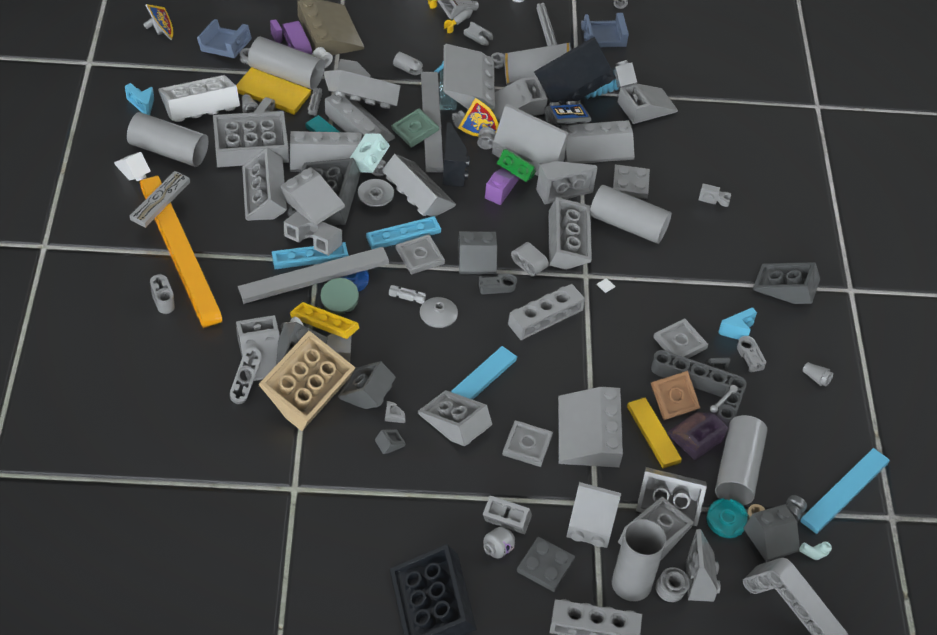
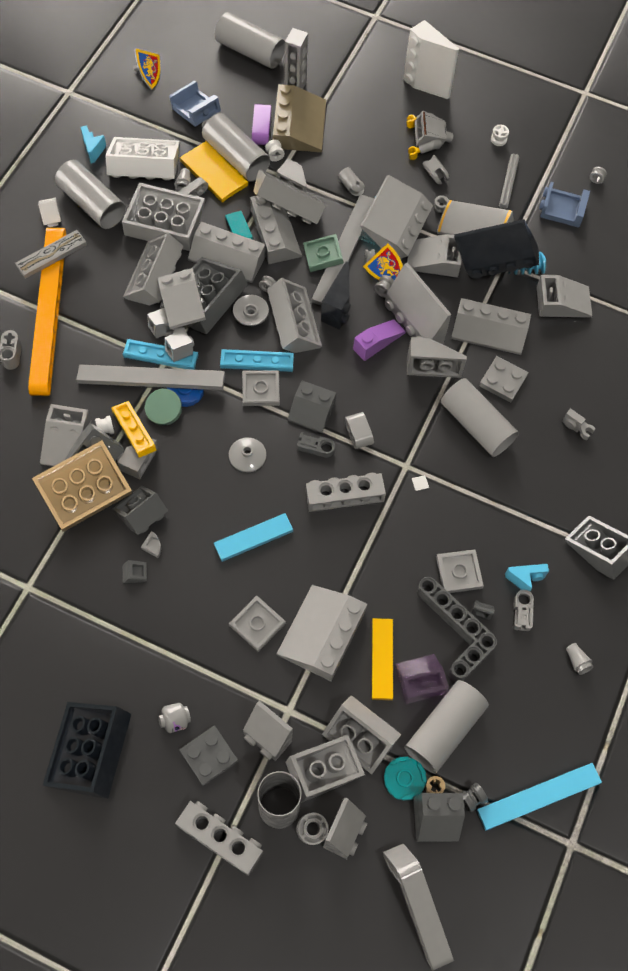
camera: 25 degrees right, 15 degrees up
(235, 387) = (41, 445): light grey beam -> none
(276, 31) = (247, 109): medium lavender tile -> none
(315, 101) = (245, 195): light grey axle -> none
(370, 152) = (261, 268): light aqua brick -> none
(407, 294) = (226, 426): light grey axle -> none
(457, 417) = (203, 572): light grey slope -> none
(507, 514) = (194, 694): light grey brick -> none
(516, 165) = (394, 327): green bracket -> none
(566, 114) = (471, 287): slope -> none
(569, 234) = (409, 418): light grey slope -> none
(624, 73) = (548, 263): light grey brick -> none
(675, 395) = (421, 629): medium nougat tile -> none
(733, 389) = (478, 647): light grey hinge -> none
(816, 552) = (473, 852): light aqua arm -> none

